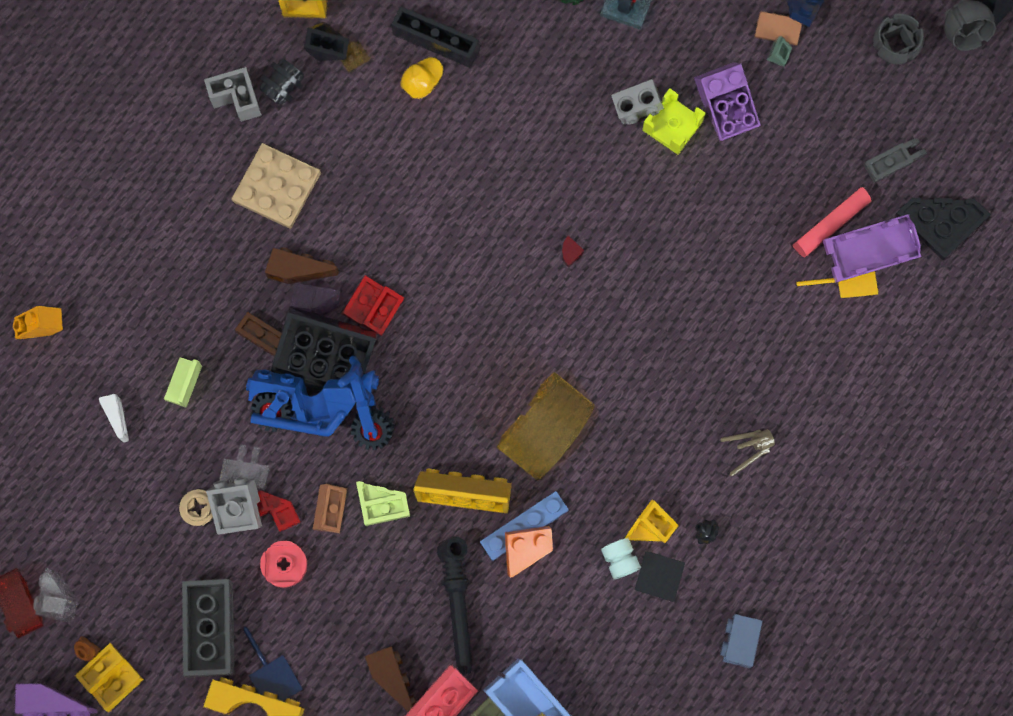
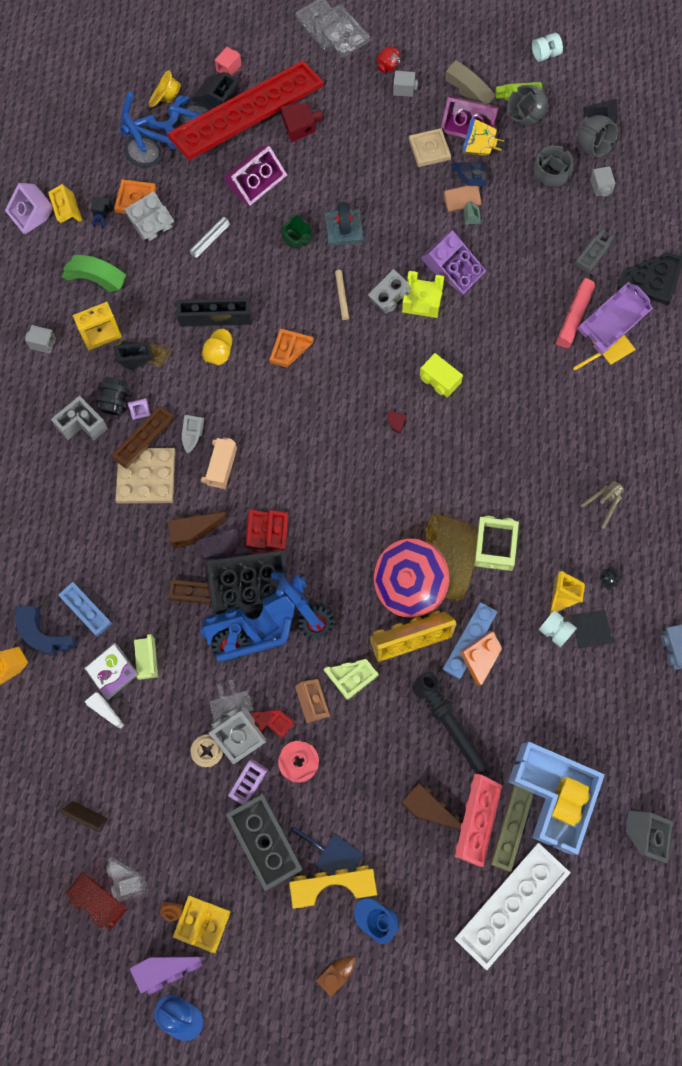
camera: 25 degrees left, 5 degrees down
(46, 514) = (84, 816): none -> dark brown slope
(79, 298) = (27, 624): none -> dark blue arch
(141, 379) = (111, 671): none -> tile
(145, 301) = (85, 609): none -> medium blue plate
(240, 550) = (255, 765): none -> lavender slope
(292, 143) = (143, 437): none -> reddish brown plate
(304, 109) = (139, 408): none -> lavender slope
(347, 160) = (191, 431): none -> light grey plate
(360, 209) = (220, 463): none -> light nougat brick
(494, 431) = (411, 578): none -> dish
(497, 114) = (289, 347): none -> orange wing
(586, 79) = (342, 296): none -> tan bar
(593, 455) = (491, 561): none -> yellowish green window
(644, 223) = (440, 375): none -> neon yellow brick
(948, 81) = (602, 181): none -> light grey brick

